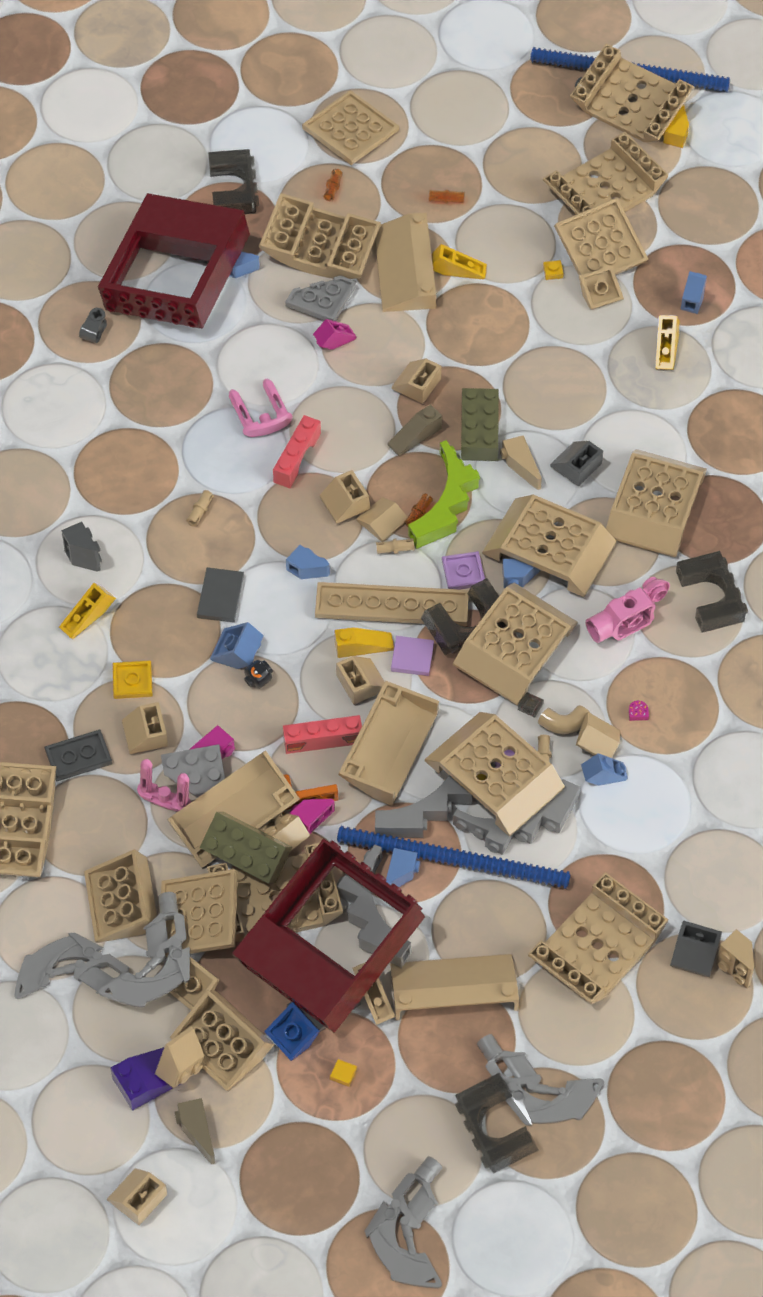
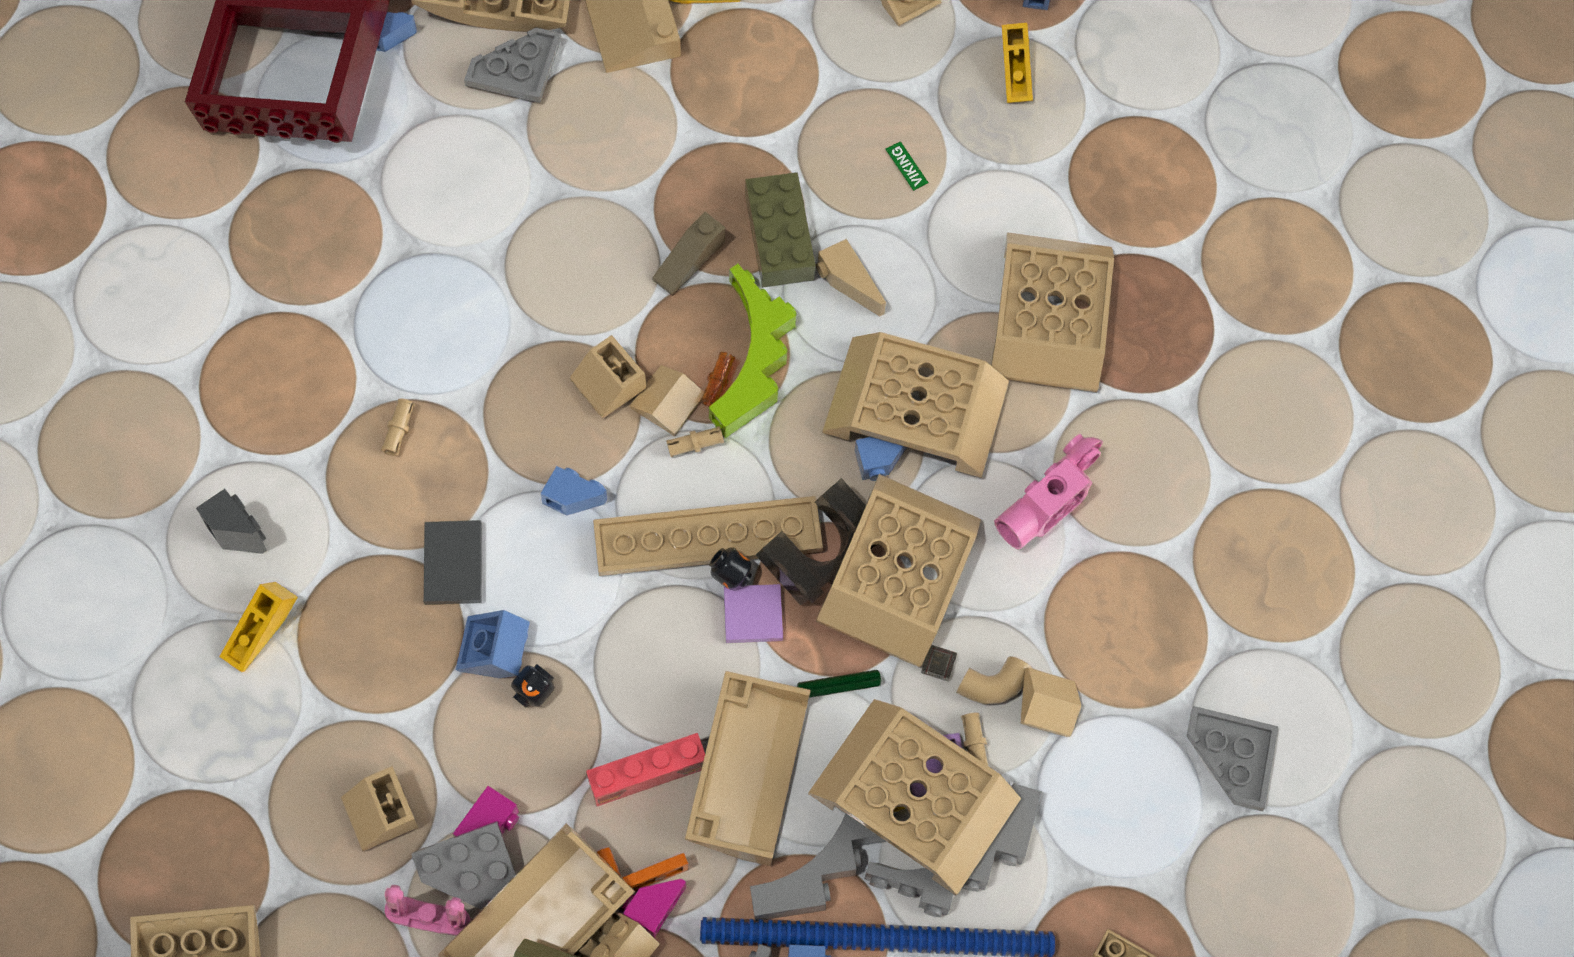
camera: 15 degrees left, 10 degrees up
(78, 755) = (284, 867): dark grey tile -> none
(93, 325) = (190, 160): dark grey piece -> none
(132, 679) = (345, 725): yellow tile -> none
(267, 424) = (474, 278): bright pink piece -> none
(289, 462) = (518, 328): coral arch -> none
(333, 334) = (543, 120): dark pink slope -> none
(359, 678) = (685, 667): tan slope -> none
(361, 641) = (676, 605): yellow slope -> none
(402, 623) = (730, 568): none -> black head
(418, 379) = (678, 172): tan slope -> none
(462, 570) = (800, 464): lavender tile -> none
(463, 706) = (842, 683): none -> dark green axle
(576, 398) = (907, 166): none -> green sticker
(578, 461) = (930, 264): dark grey slope -> none
(603, 770) = (1067, 754): medium blue slope -> none
(638, 711) = (1095, 646): dark pink tile -> none
(713, 569) = (1157, 404): clear smoke arch -> none
(718, 788) = (1236, 753): none -> light grey plate

